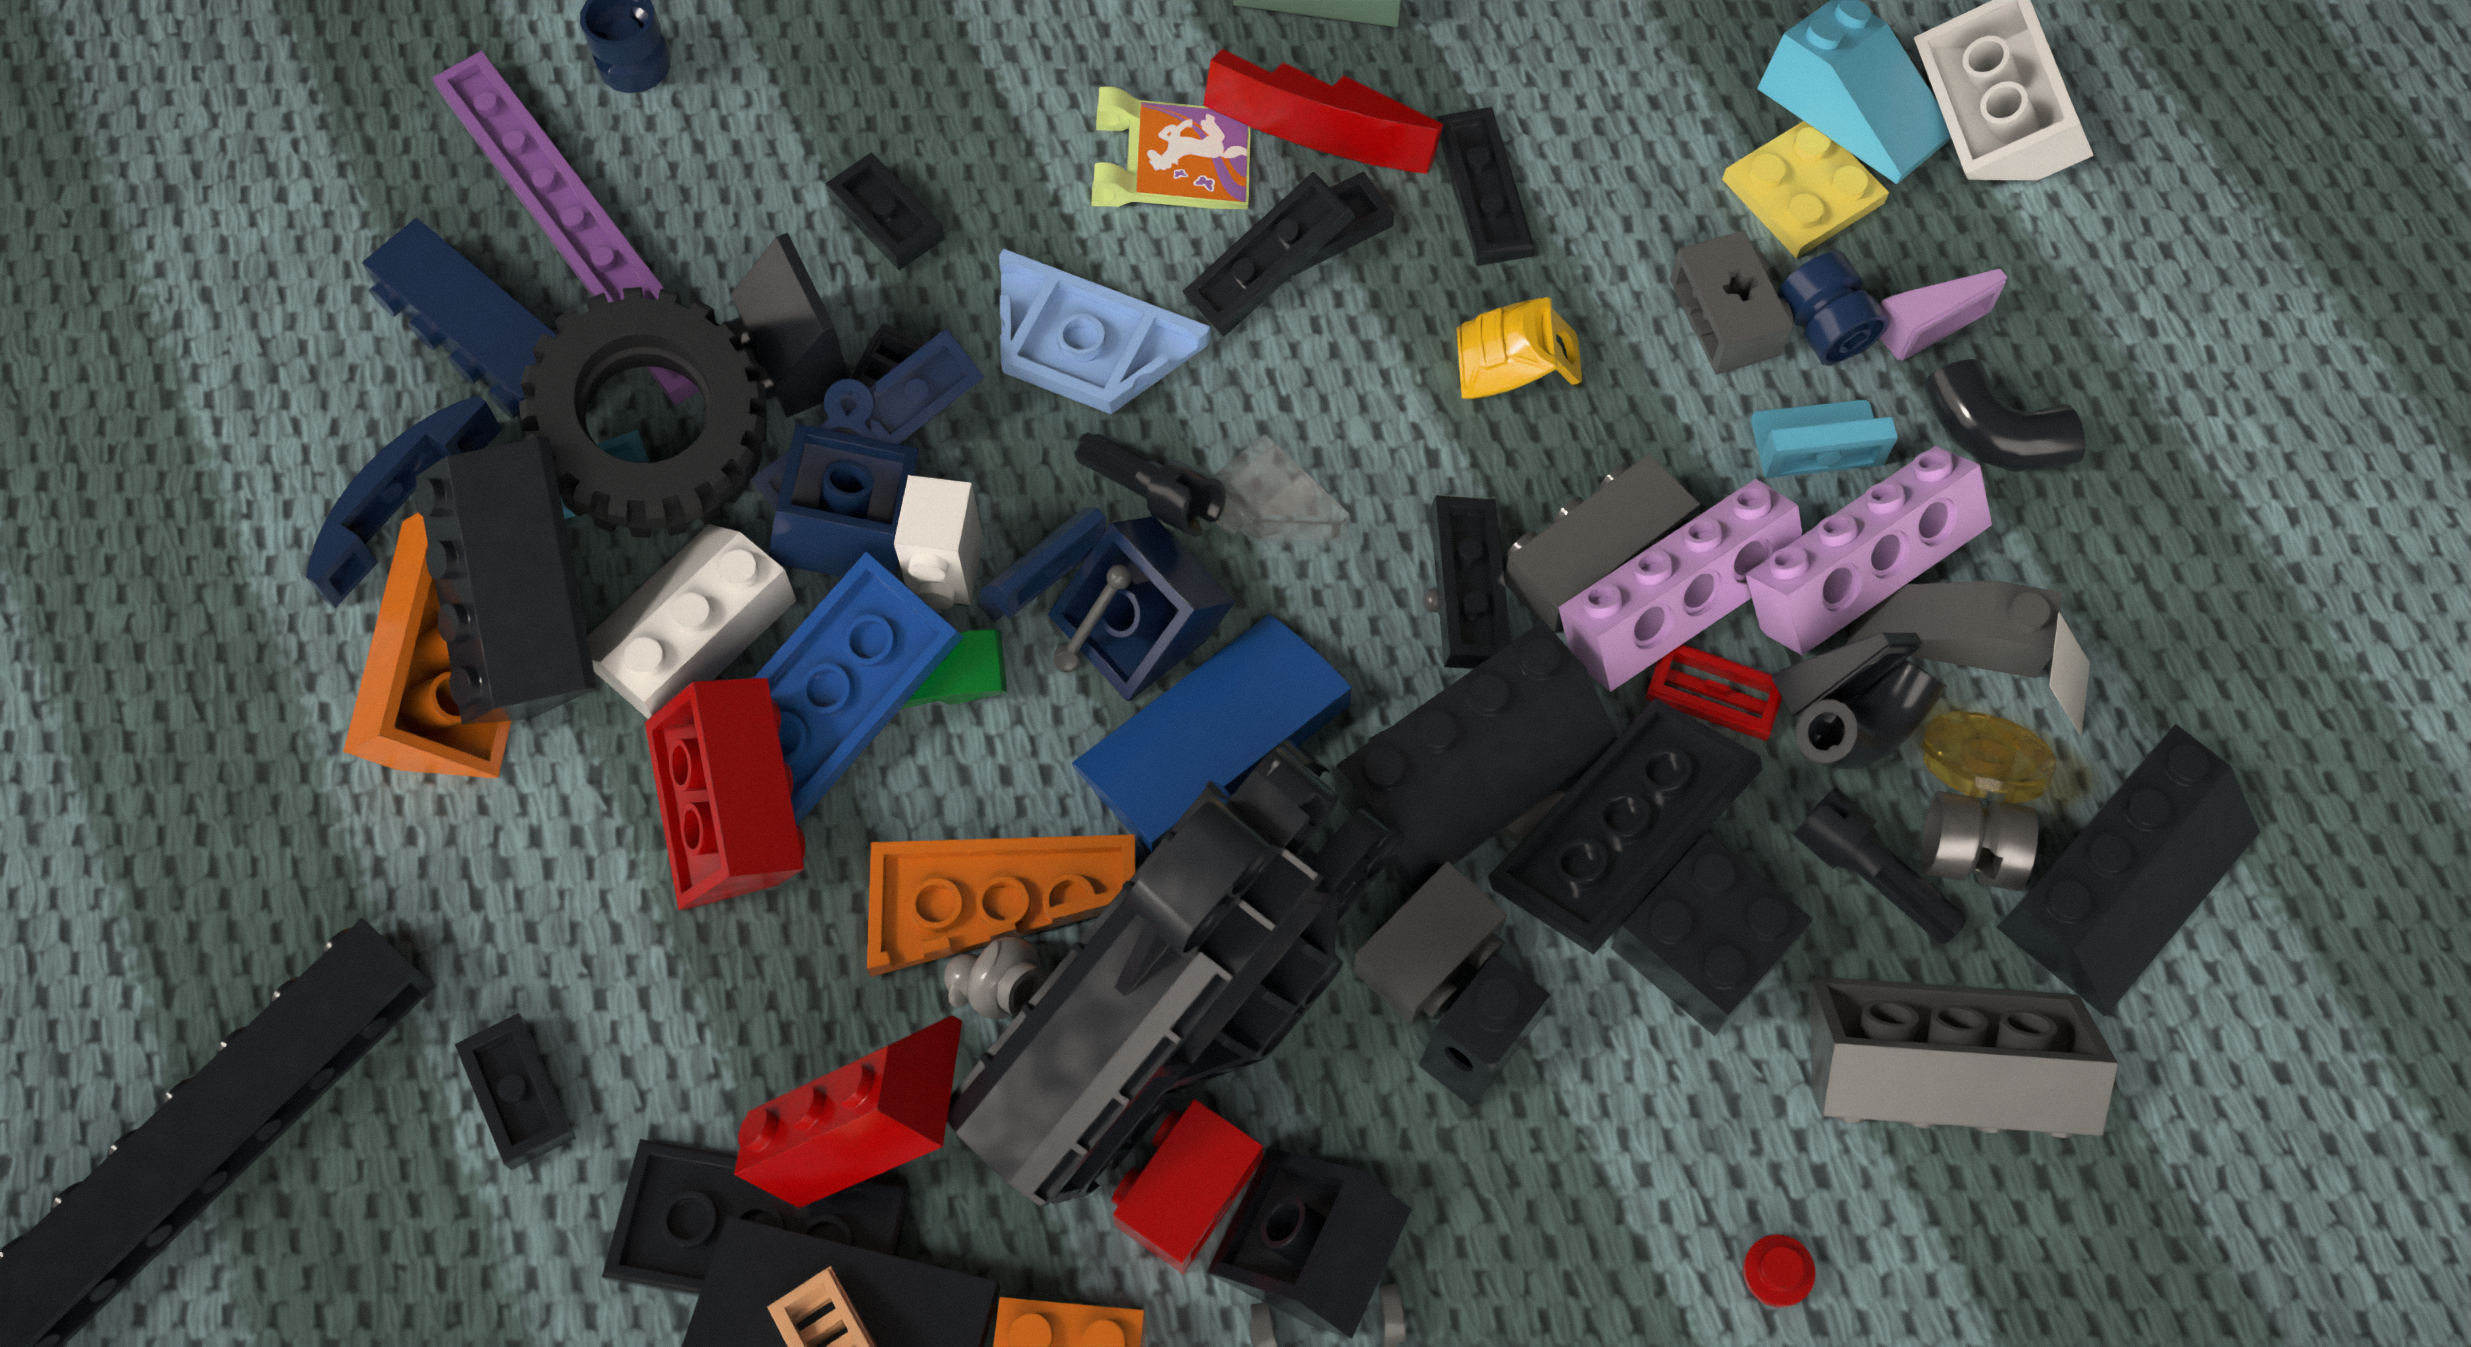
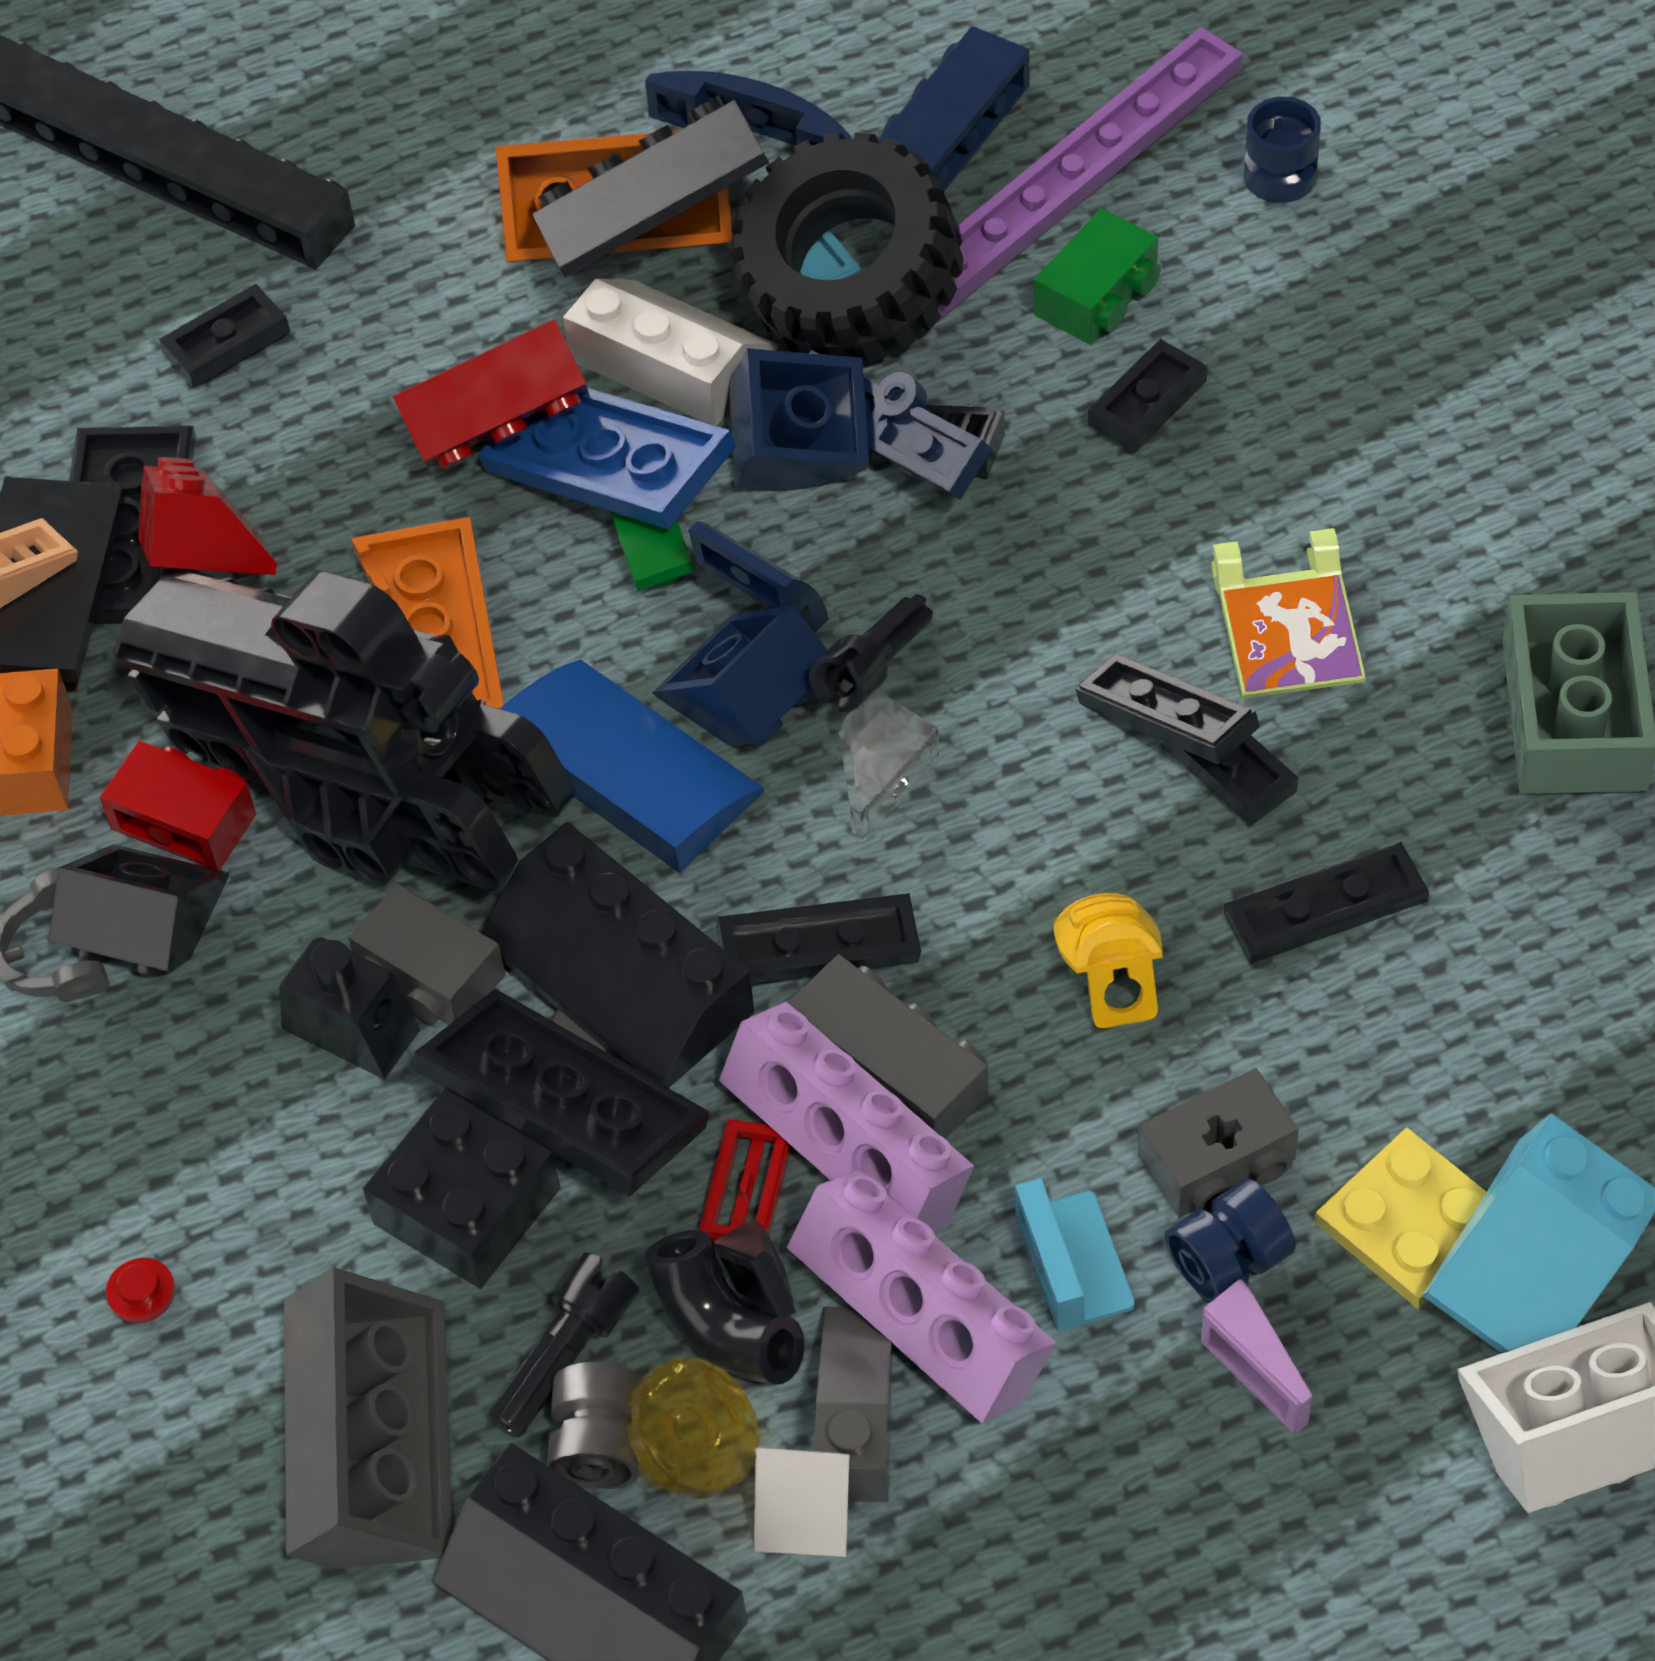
camera: 85 degrees right, 10 degrees down
(722, 216) = (1097, 277): none -> green brick
(788, 329) = (978, 345): black slope -> none
(939, 540) = (763, 492): white brick -> none
(1066, 656) = (689, 634): dark grey hinge -> none
(1087, 336) = (1040, 581): light blue wing -> none
(1332, 119) = (1359, 739): red slope -> none
(1994, 431) = (1109, 1428): black cylinder -> none

